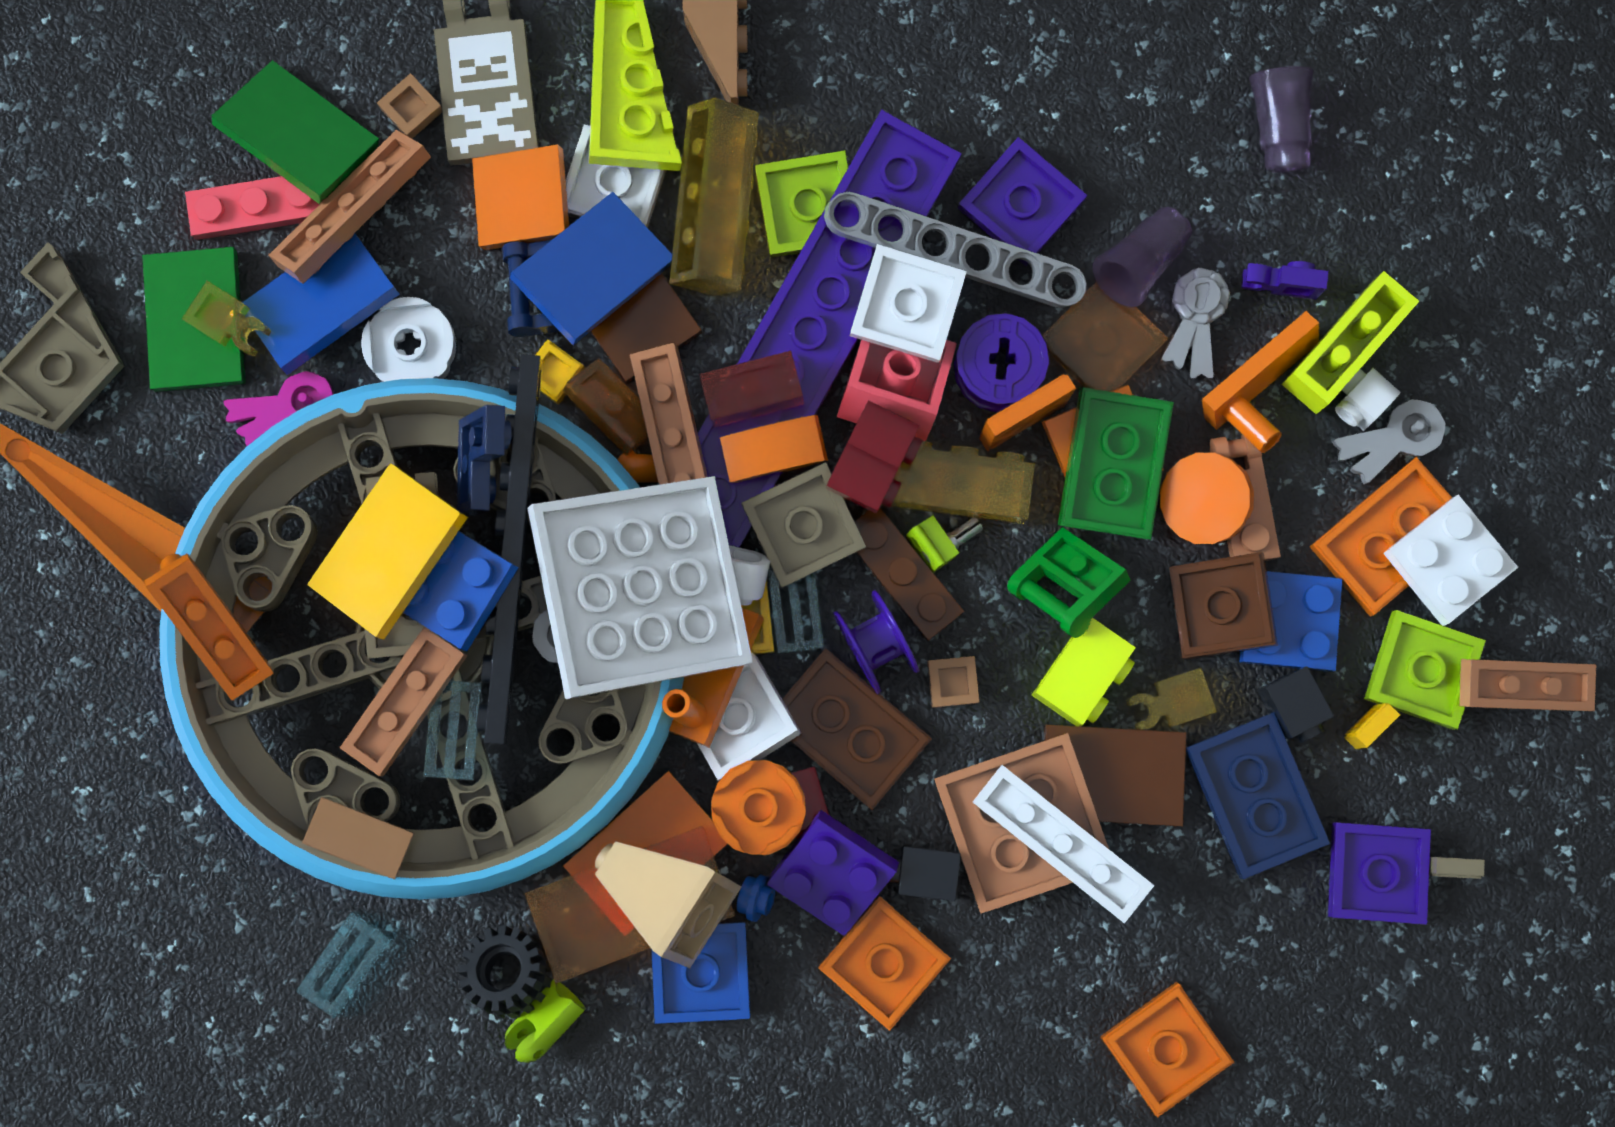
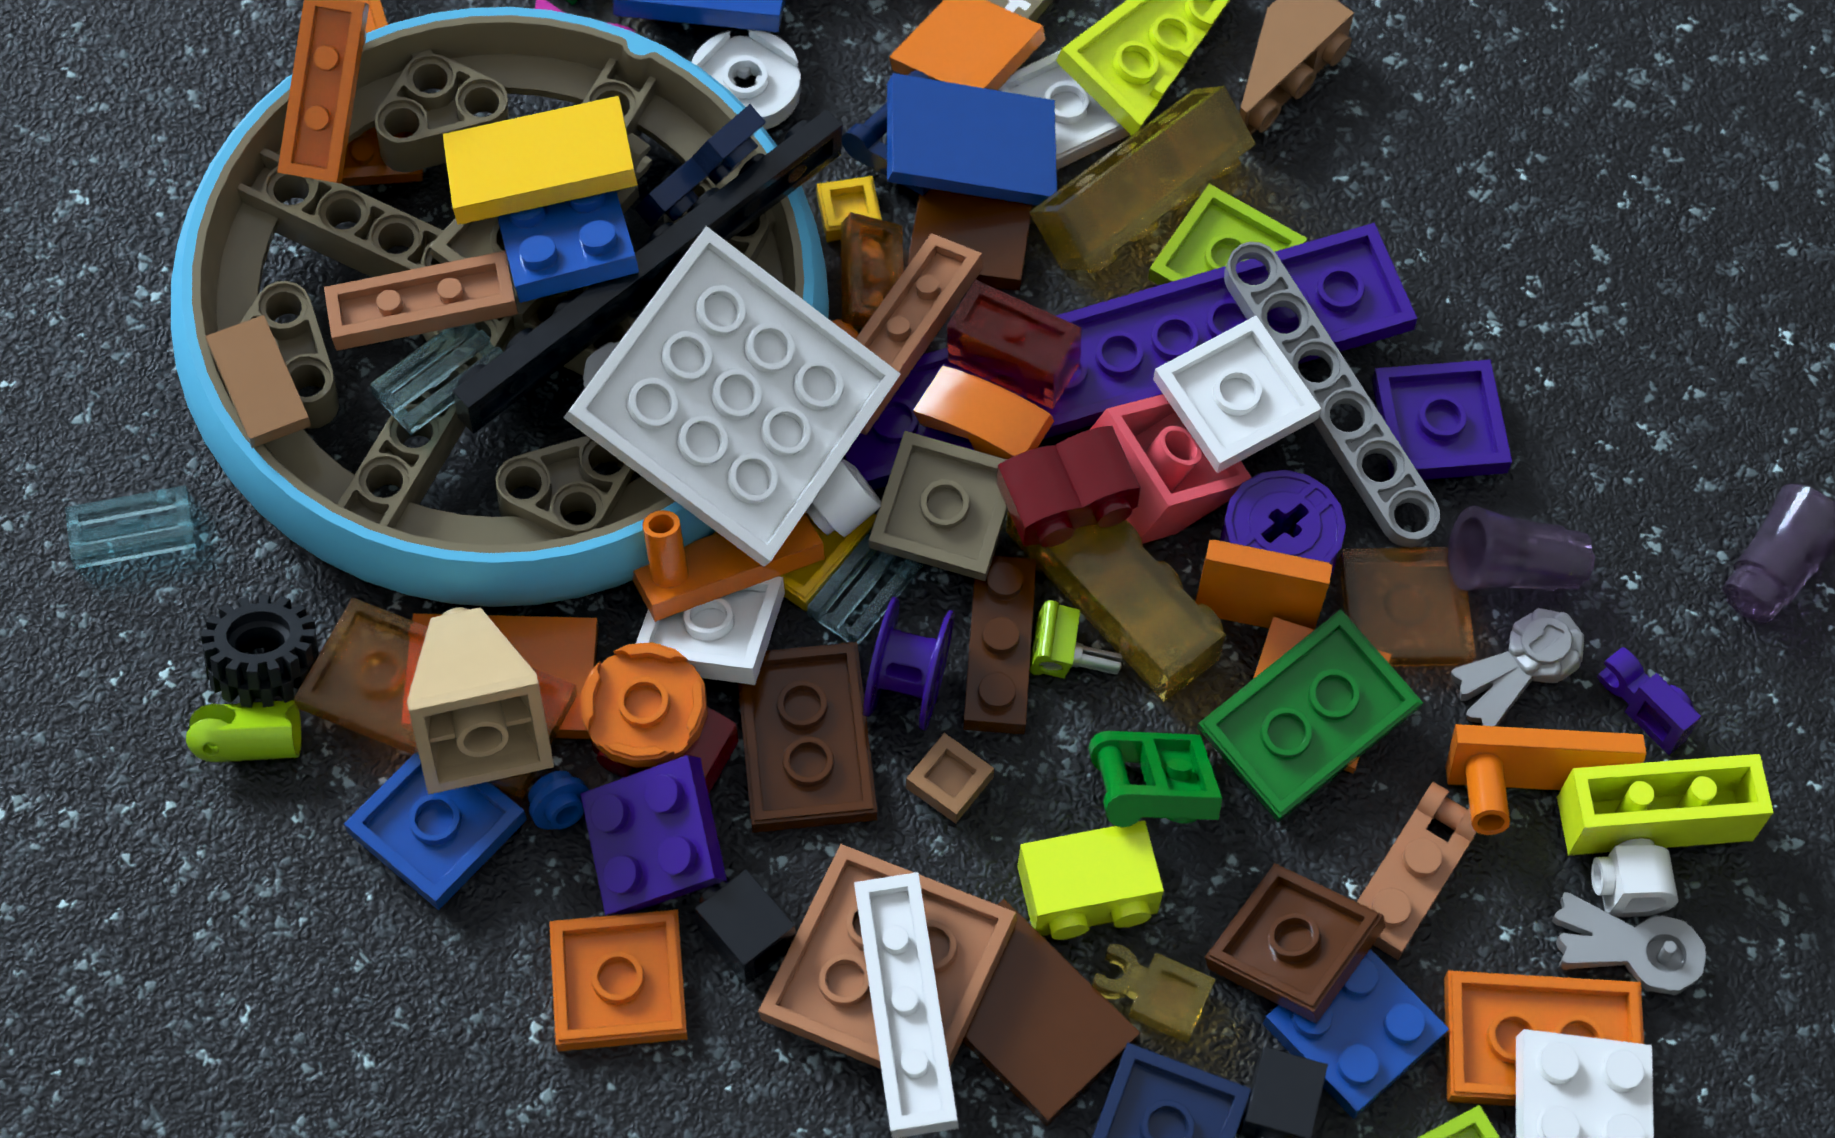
camera: 40 degrees right, 20 degrees down
(1206, 498) = (1374, 826): orange tile -> none

